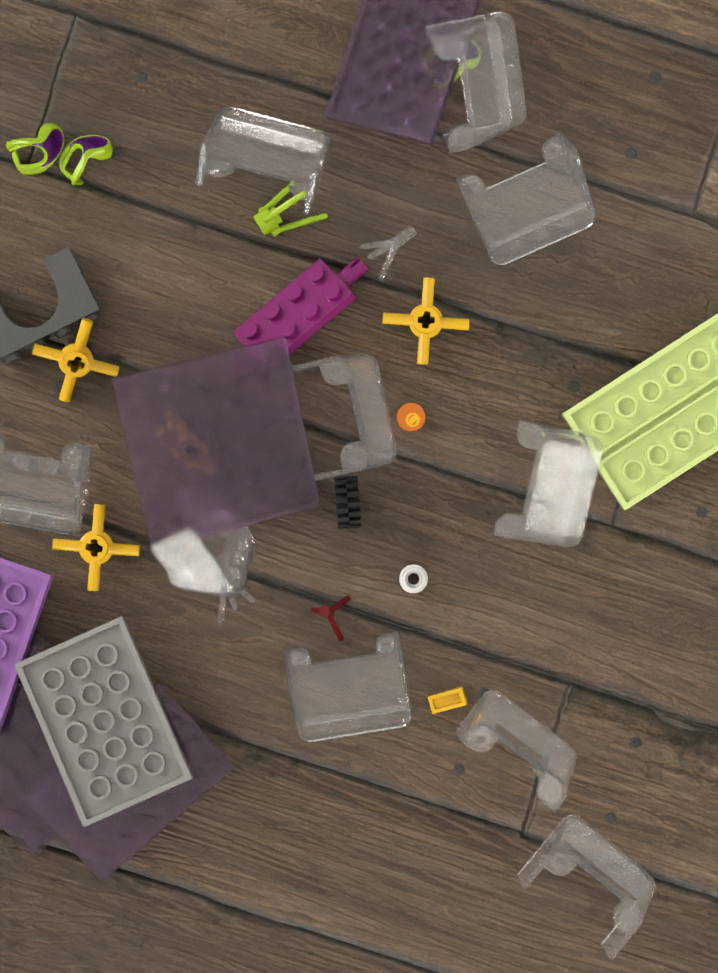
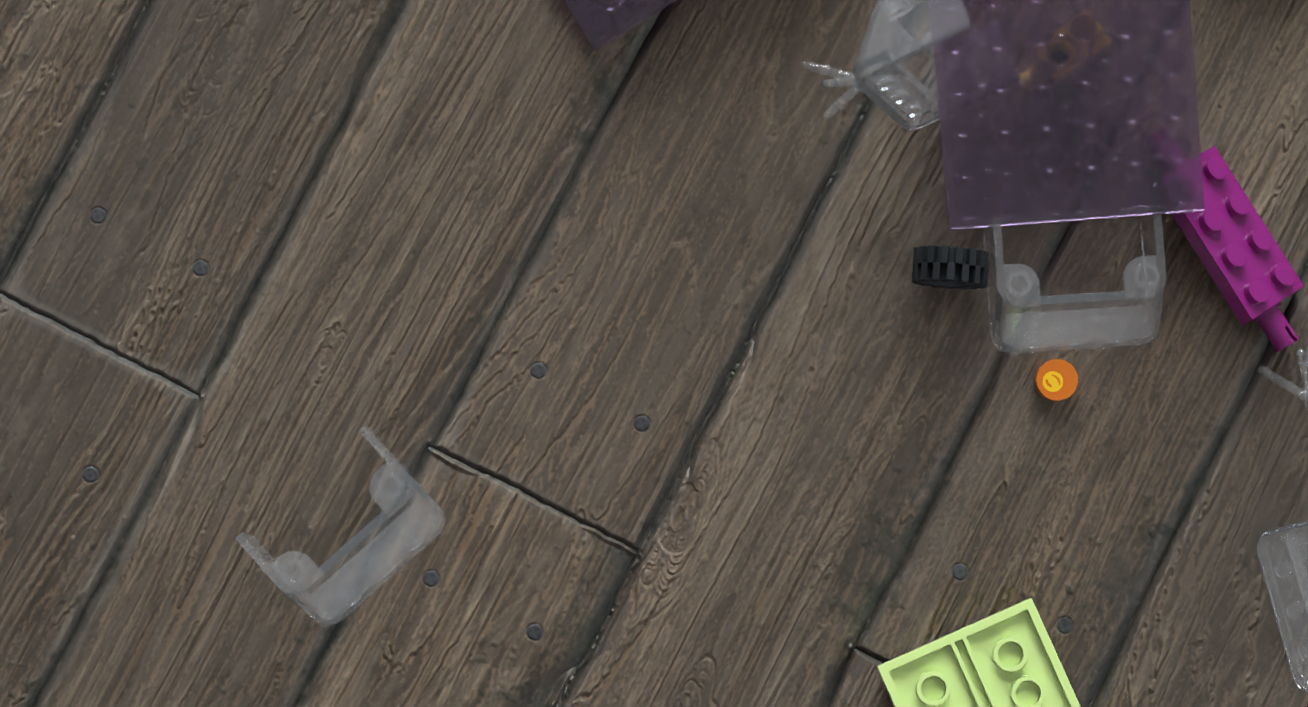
camera: 100 degrees right, 5 degrees down
(329, 612) = (797, 215): dark red plant -> none
(349, 693) = (673, 227): clear windscreen -> none
(420, 585) = (823, 333): white plate -> none
(434, 328) = (1181, 431): yellow bar -> none
(447, 700) = (640, 369): yellow piece -> none
(500, 719) = (573, 470): clear windscreen -> none
(558, 486) = (928, 570): clear windscreen -> none

